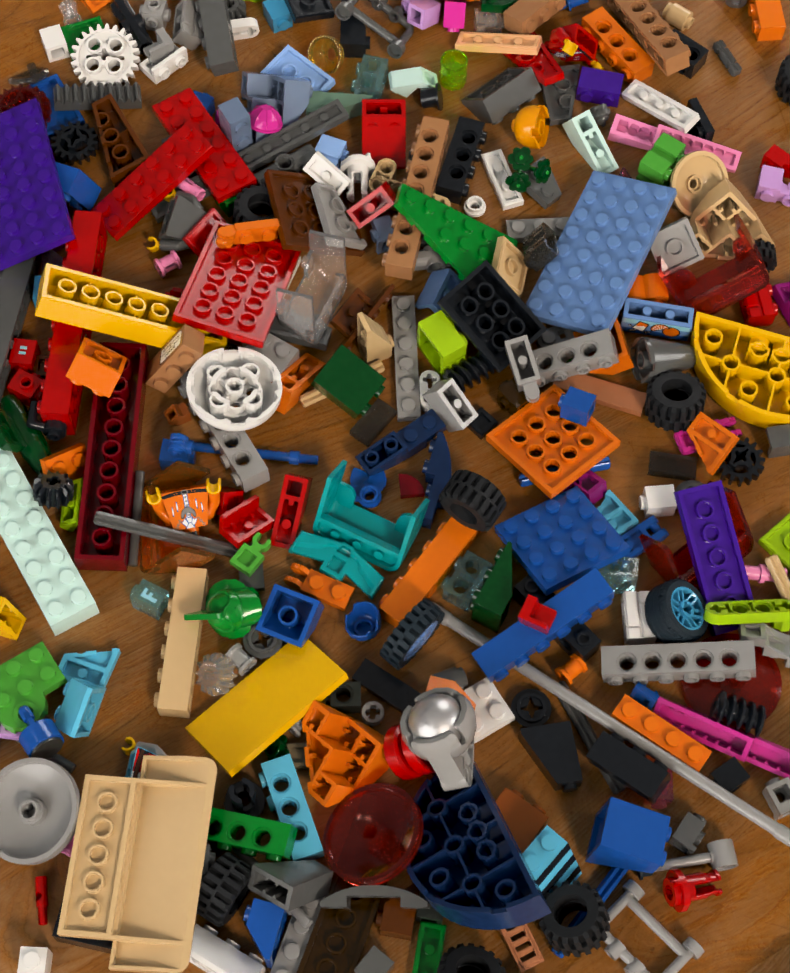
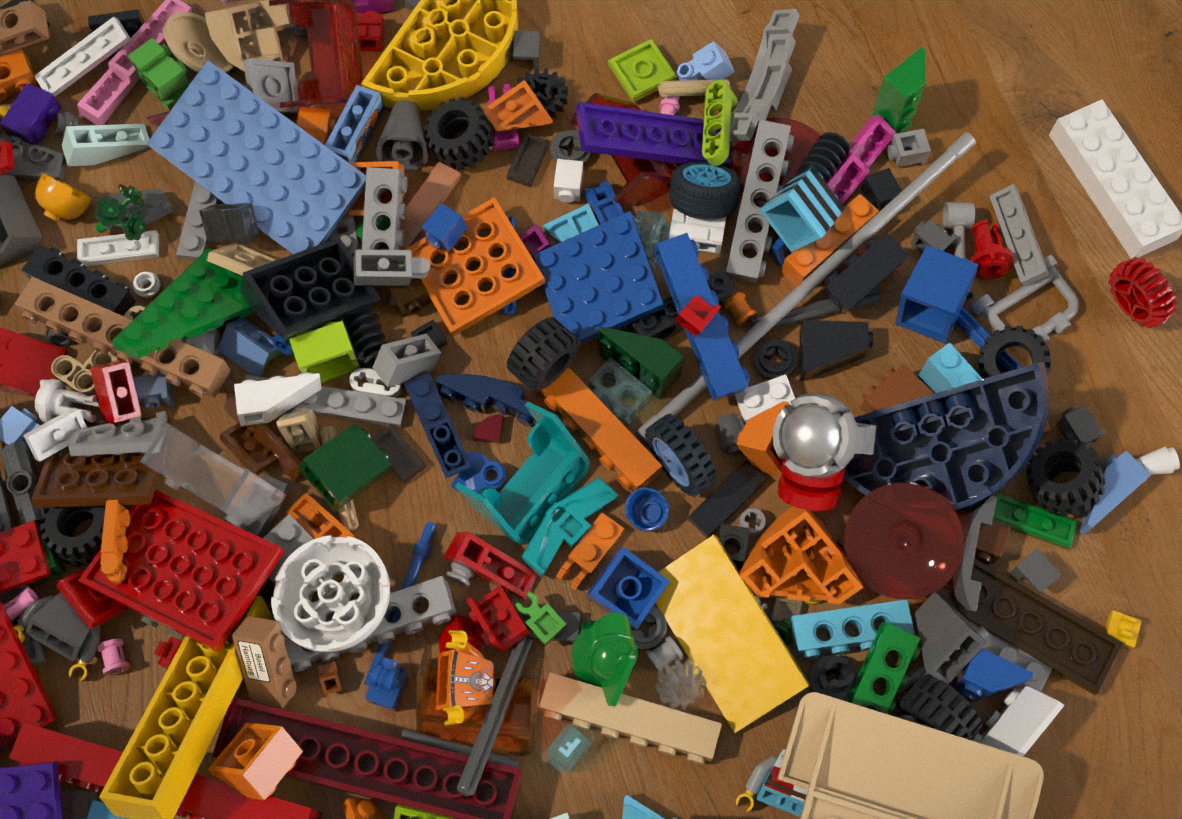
camera: 75 degrees left, 5 degrees up
(276, 488) = (460, 574): none -> light grey bush
(389, 310) = (267, 399): none -> white slope
(677, 698) = (803, 209): none -> medium azure slope
(715, 914) = (1019, 235): none -> light grey plate

